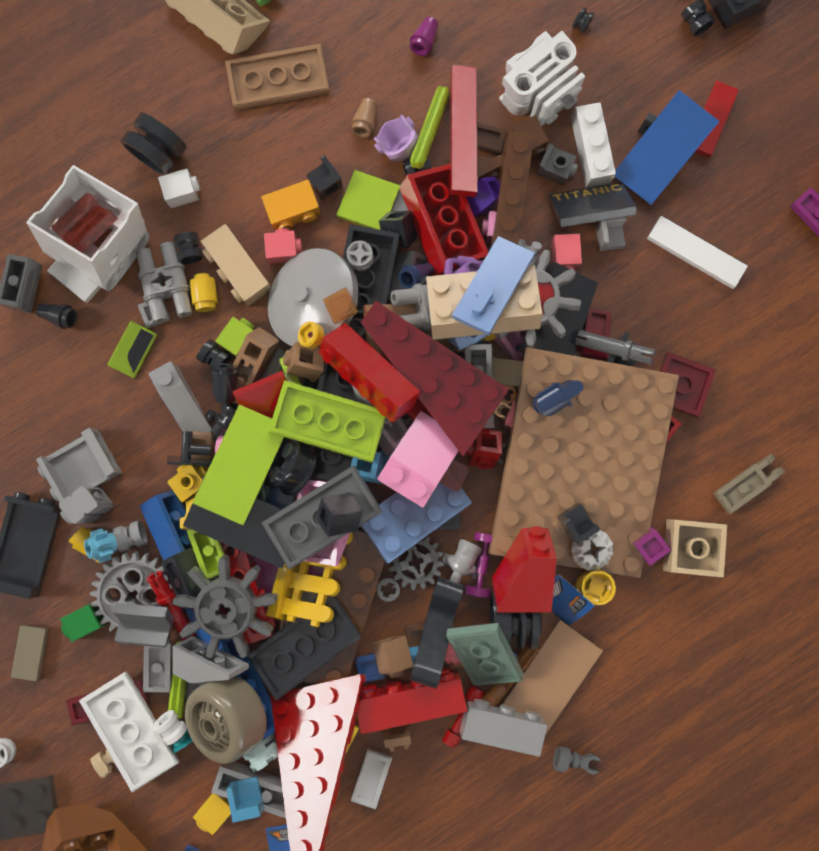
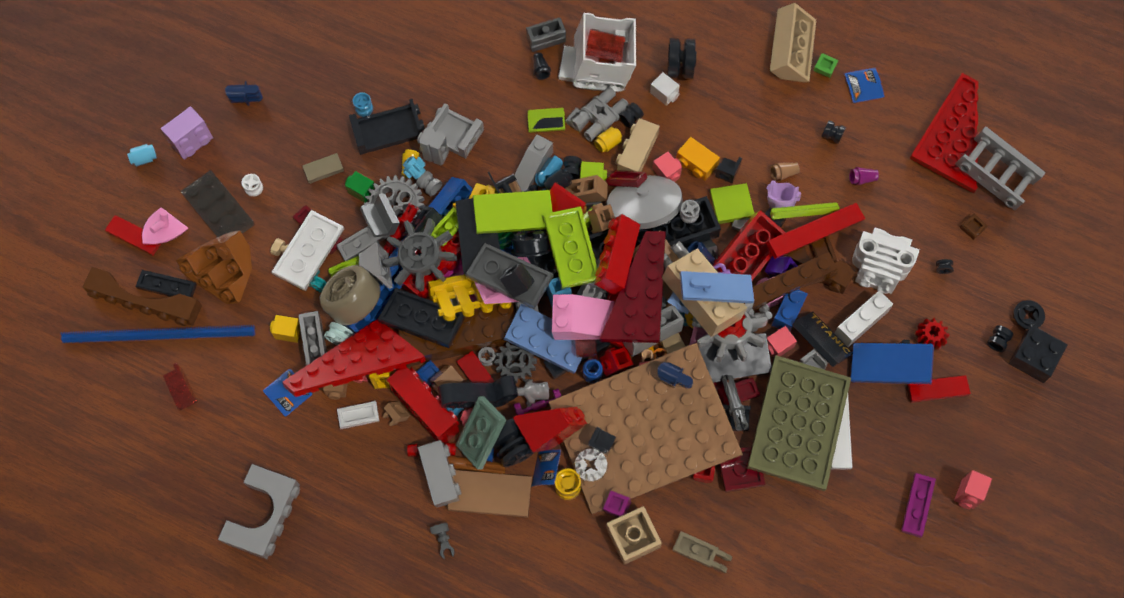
camera: 60 degrees right, 15 degrees down
(169, 727) = (324, 270): white wheel -> none
(200, 385) = (550, 167): none -> dark azure piece
(245, 799) = (306, 334): dark azure panel -> none
(268, 302) = (626, 178): none -> dark red tile
(277, 77) = (776, 105): medium nougat tile -> none
(310, 334) = (619, 208): yellow tile -> none
(340, 305) = (649, 214): clear orange tile -> none
(352, 33) = (833, 131): none -> black wheel
(399, 613) = (474, 369): none -> red tile
(401, 223) = (728, 230): black panel -> none
(485, 475) = (592, 366): none -> blue brick
(537, 219) = (789, 309): none -> blue brick
(552, 171) = (831, 310): dark grey brick -> none
(651, 85) = (933, 327): none -> red gear
(671, 290) = (799, 423): none -> olive plate

